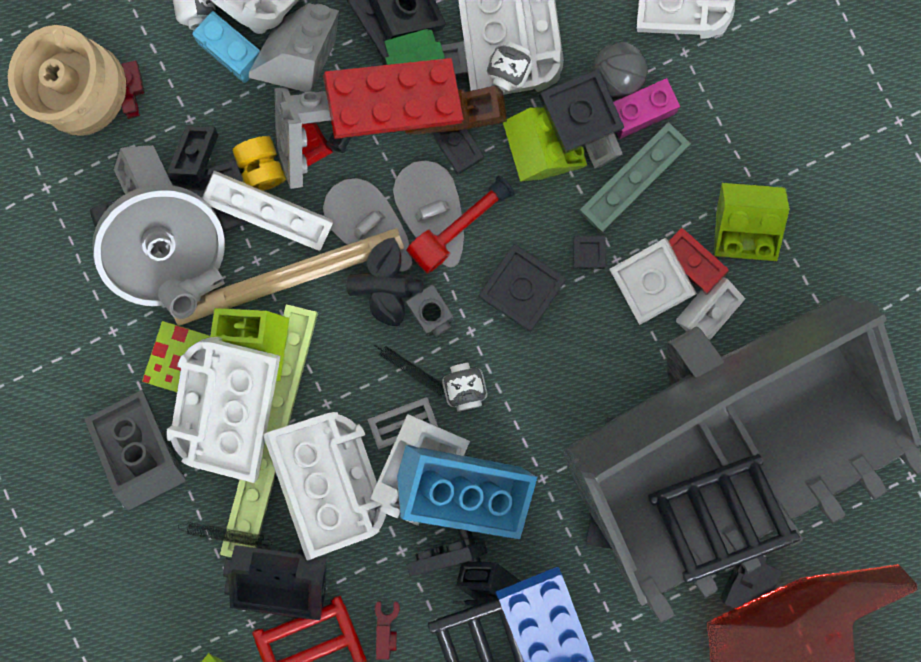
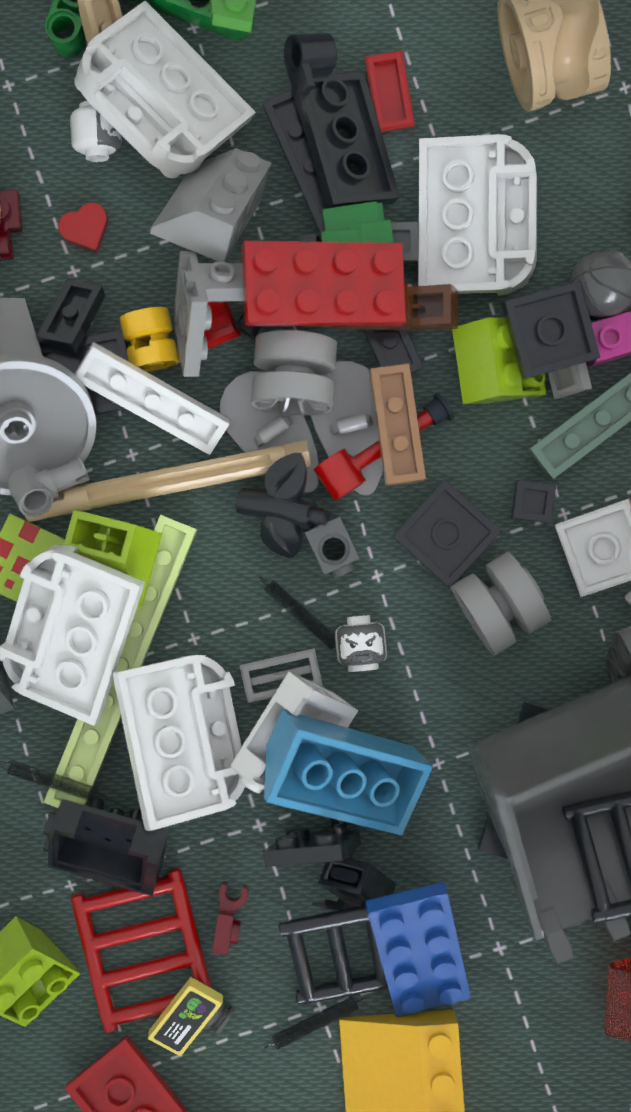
camera: 10 degrees right, 5 degrees up
(195, 83) = (85, 227): none -> red tile
(226, 45) = (129, 187): medium azure brick -> none
(379, 174) = (294, 372): none -> light grey wheel
(469, 204) = (397, 424): none -> medium nougat plate
(510, 66) = (471, 262): head -> none
(581, 330) = (511, 597): none -> light grey wheel

